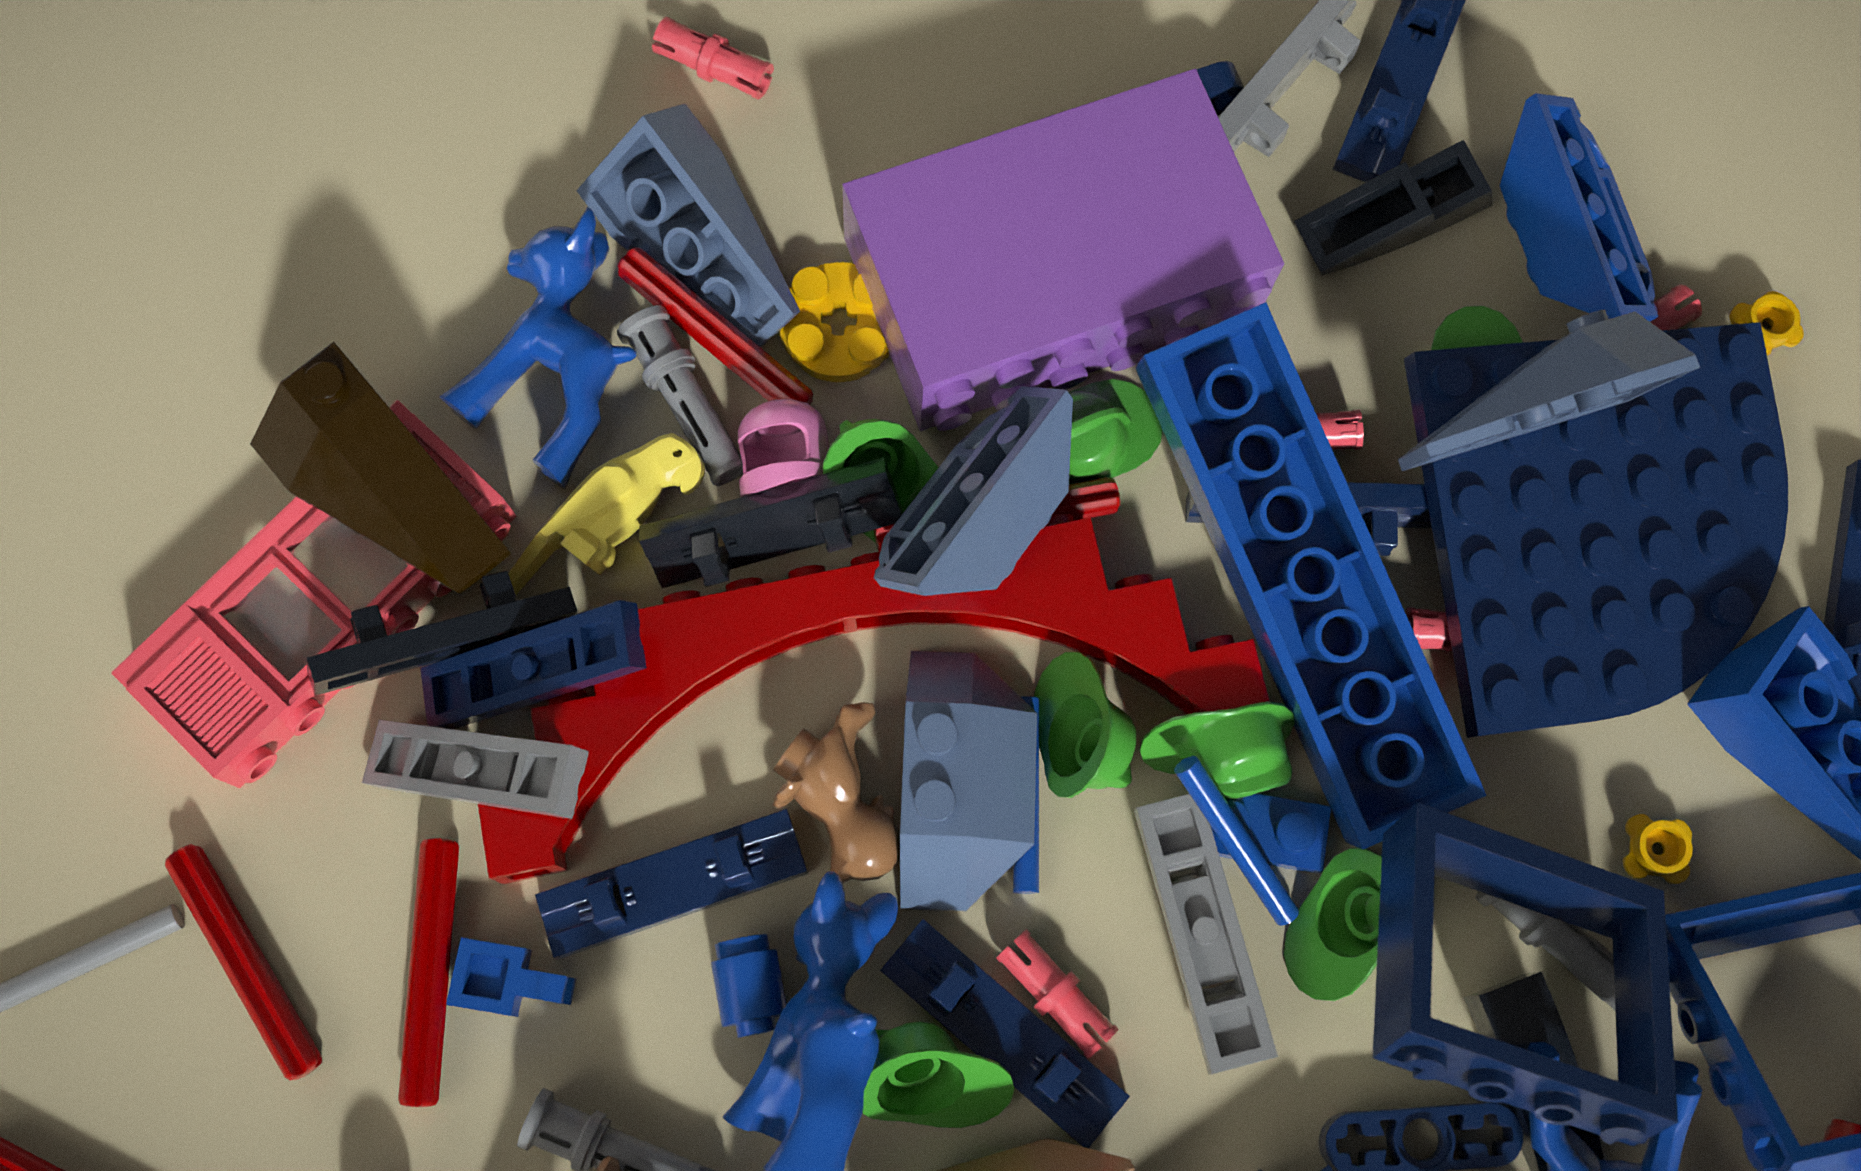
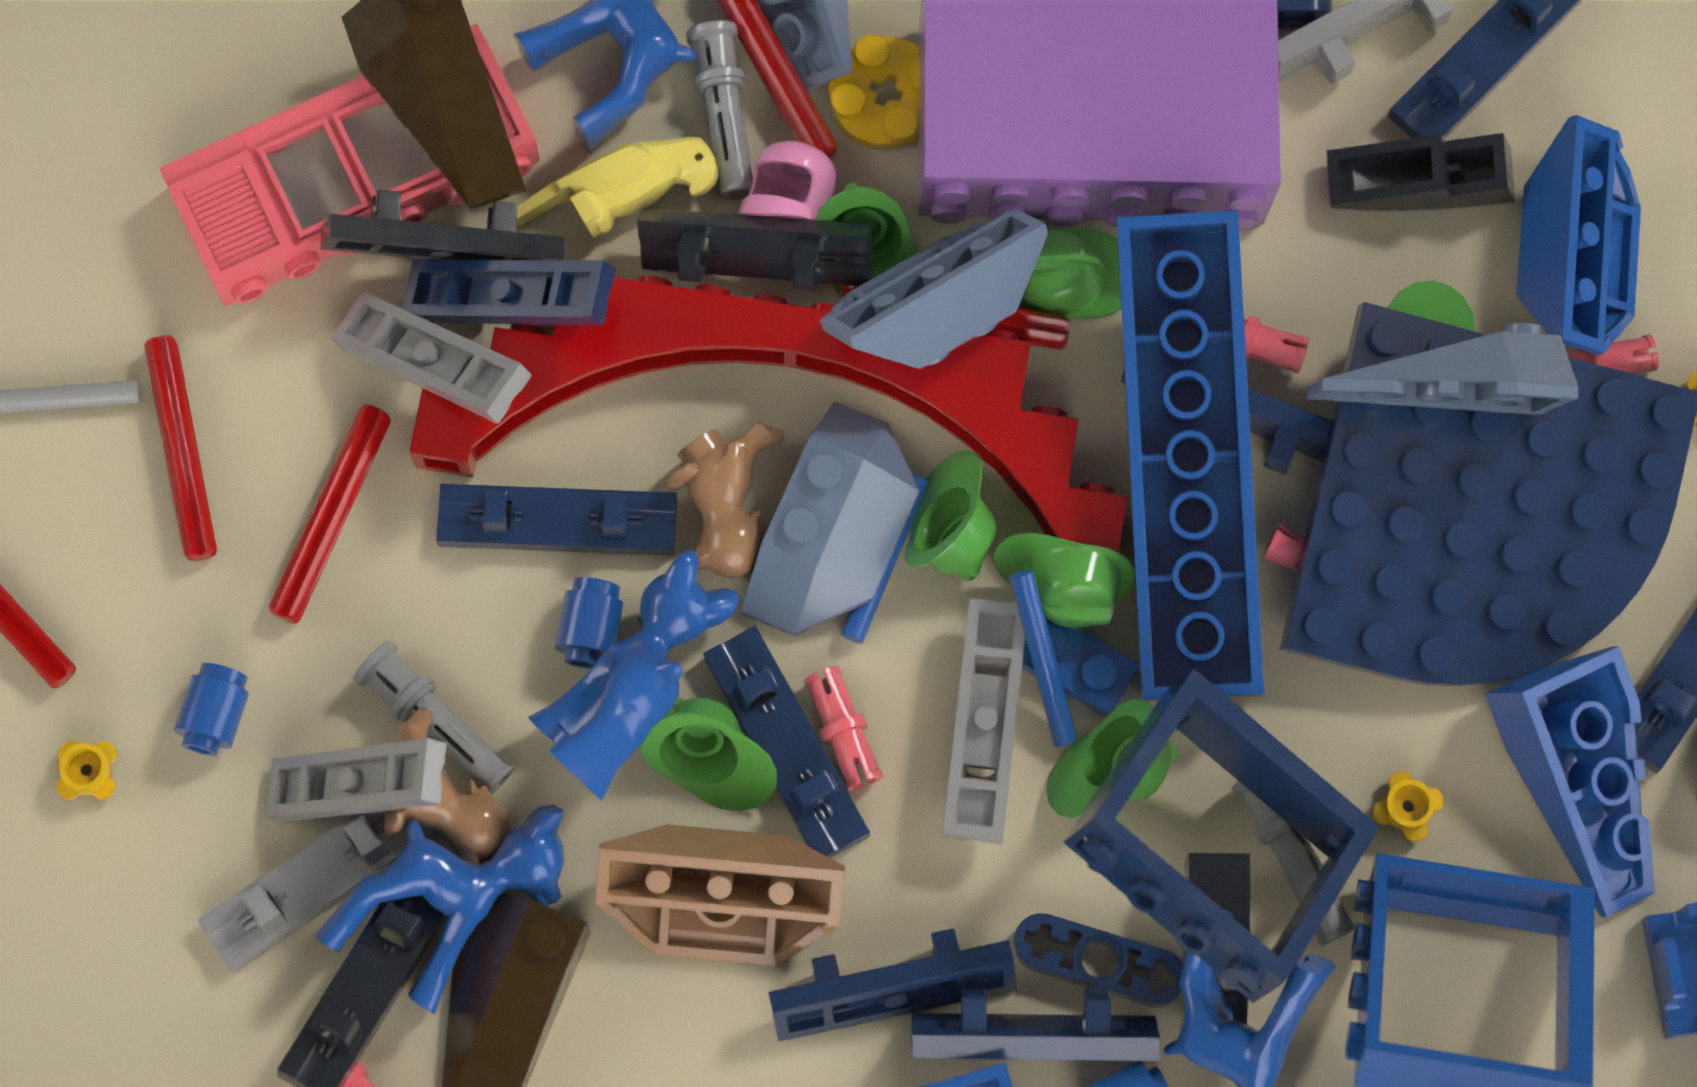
camera: 20 degrees right, 0 degrees up
(497, 977) = (385, 539): blue plate -> none

